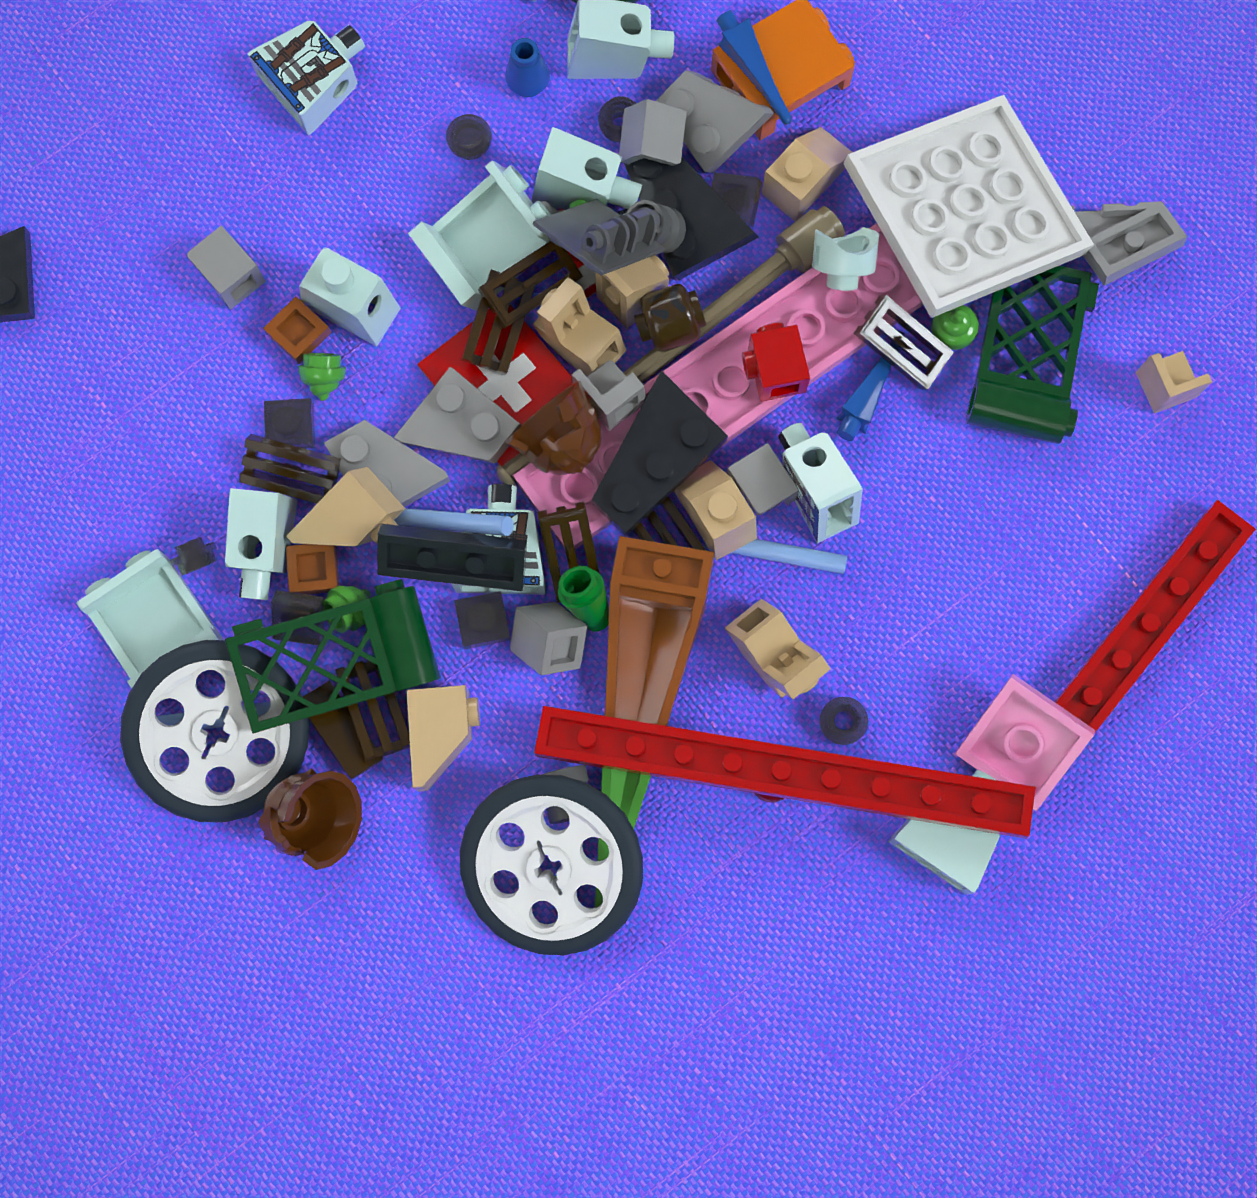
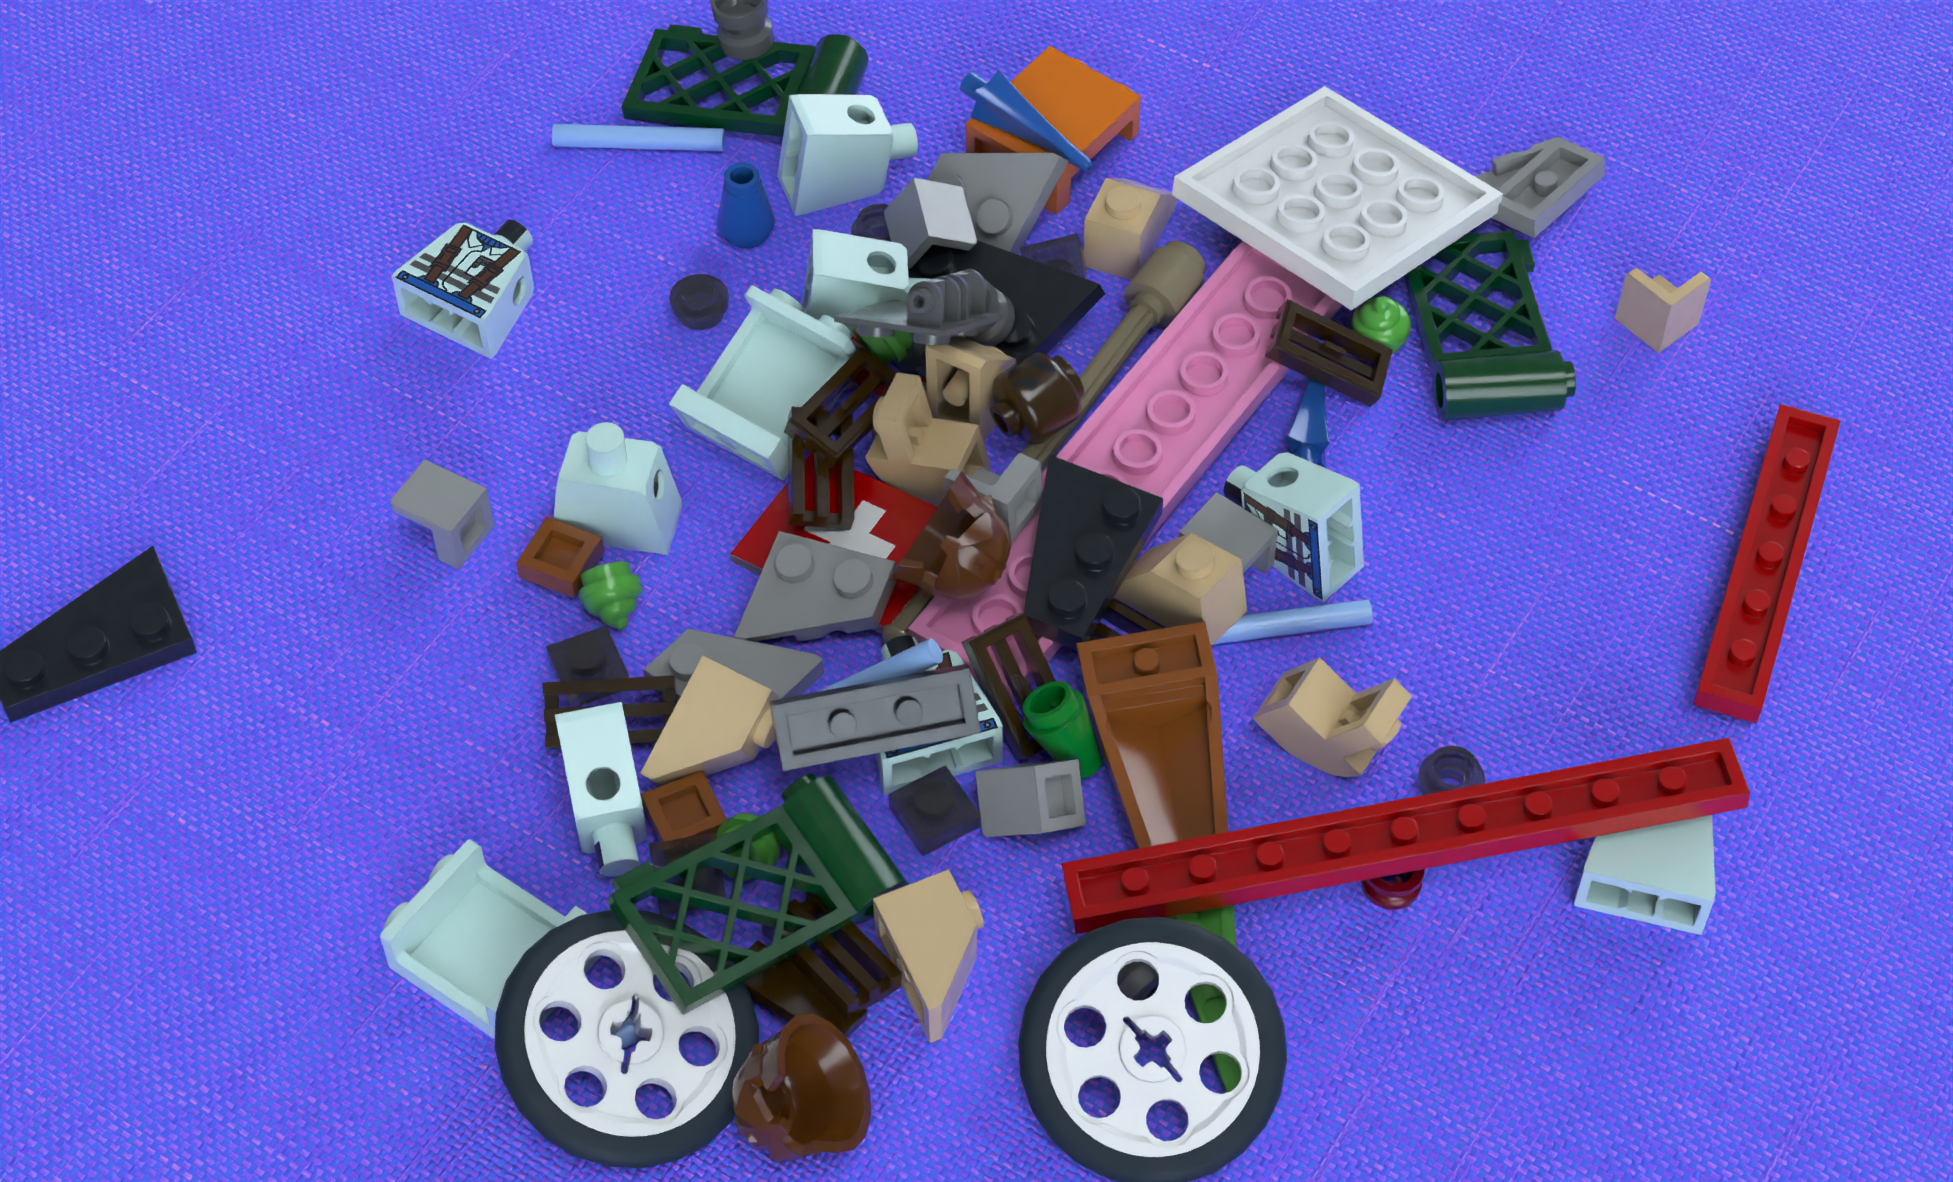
camera: 20 degrees left, 25 degrees down
(193, 556) = (517, 846): clear smoke plate -> none
(776, 362) = (1190, 404): red brick -> none
(846, 257) = (1219, 274): light aqua piece -> none
(1025, 739) = (1688, 701): bright pink plate -> none

